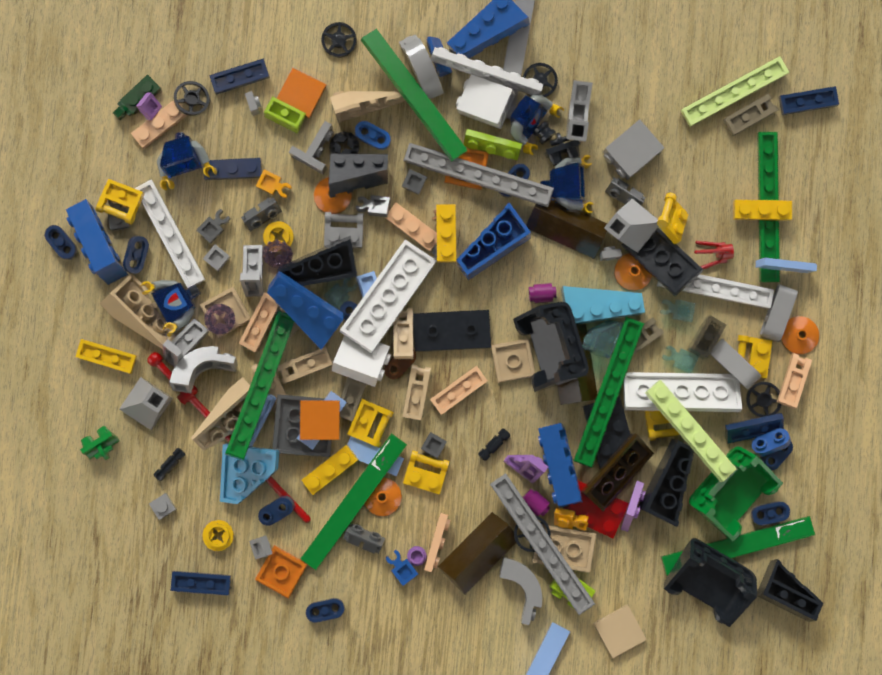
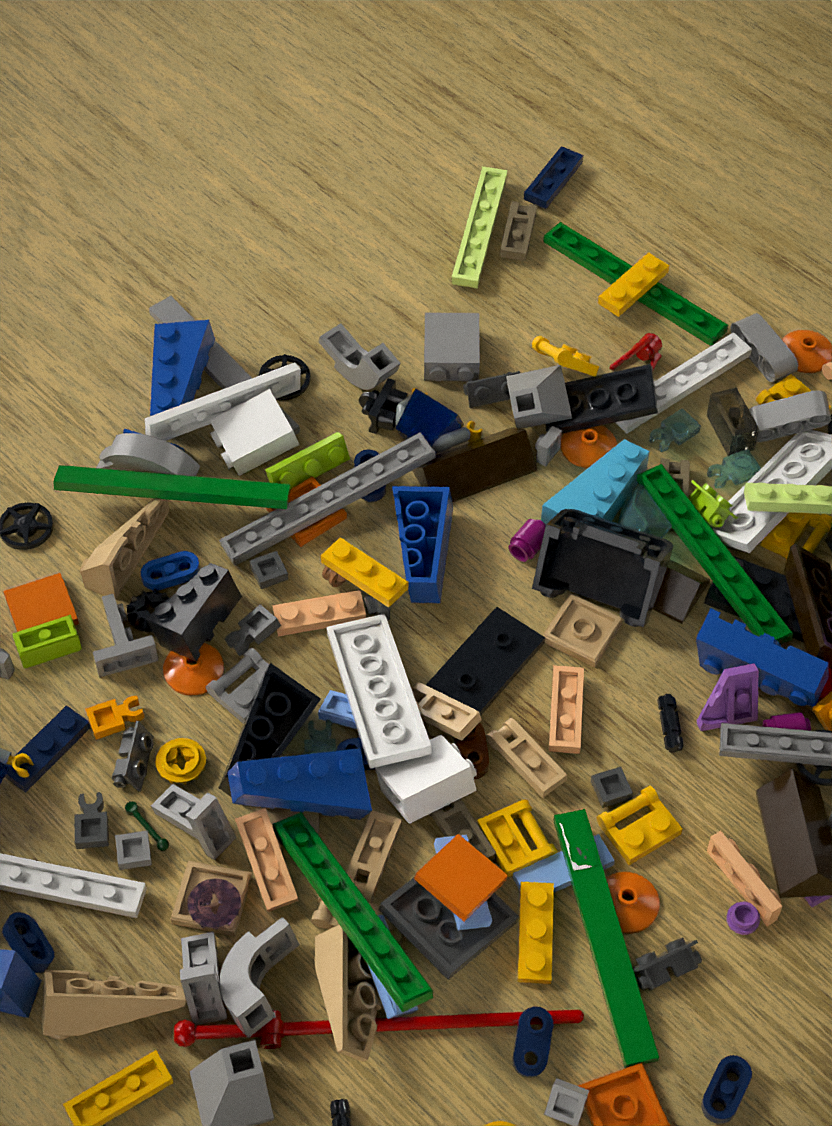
camera: 45 degrees left, 30 degrees down
(173, 302) = (134, 944): torso -> none
(238, 236) = (132, 809): none -> dark green hinge
(243, 477) = (445, 1032): dark azure plate -> none
(268, 253) = (208, 761): gear -> none
(403, 569) = (750, 946): blue plate -> none
(528, 116) = (314, 407): torso -> none
(544, 132) = (346, 409): black wheel -> none
(644, 360) = (712, 509): none -> lime hinge
(786, 265) = (716, 302): light blue tile -> none

